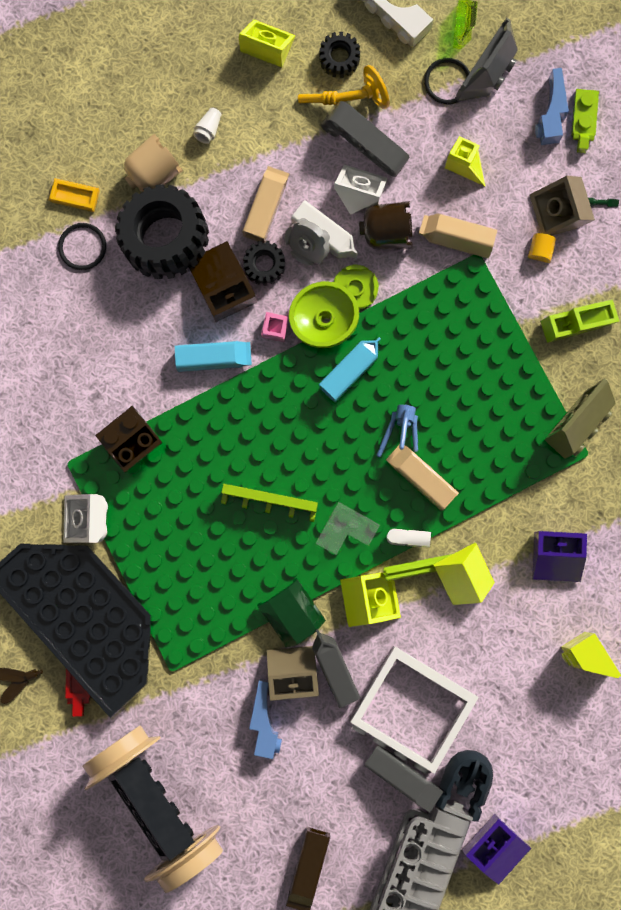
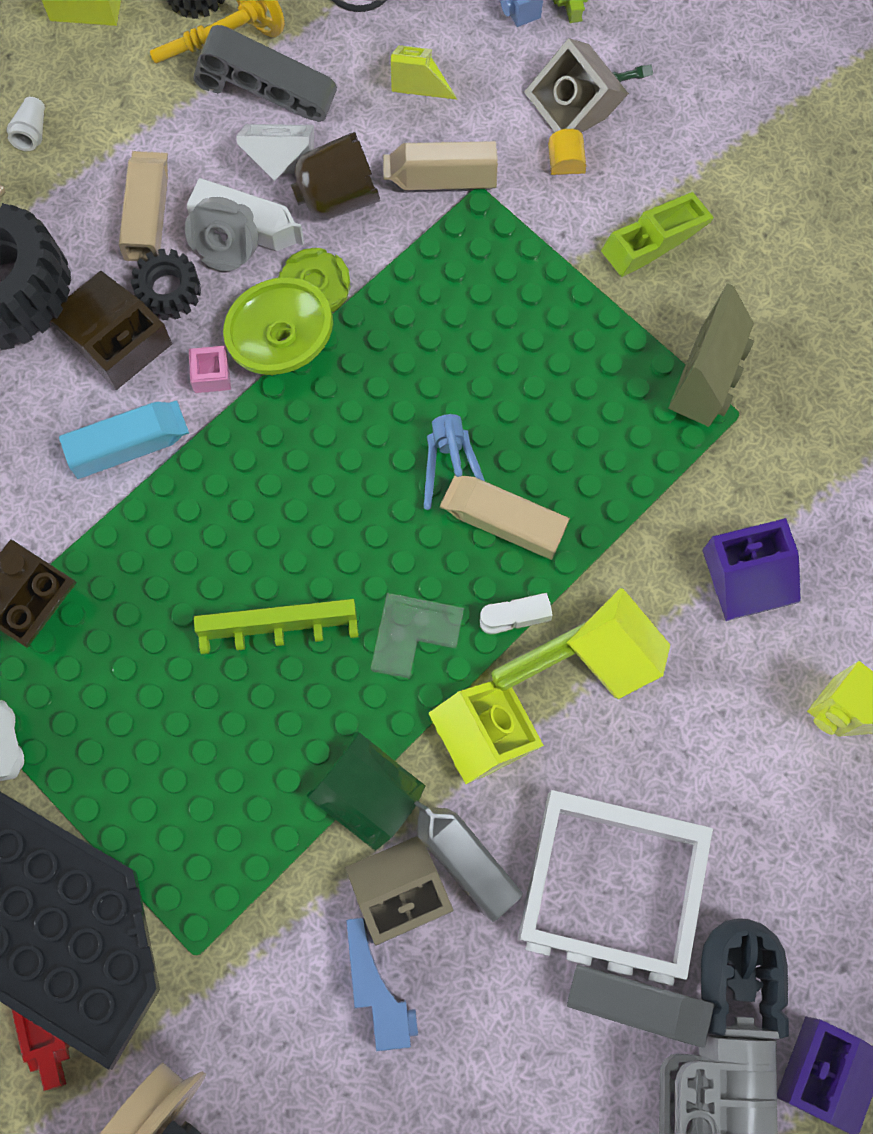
camera: 25 degrees left, 10 degrees down
(350, 369) = (342, 392): medium azure piece -> none

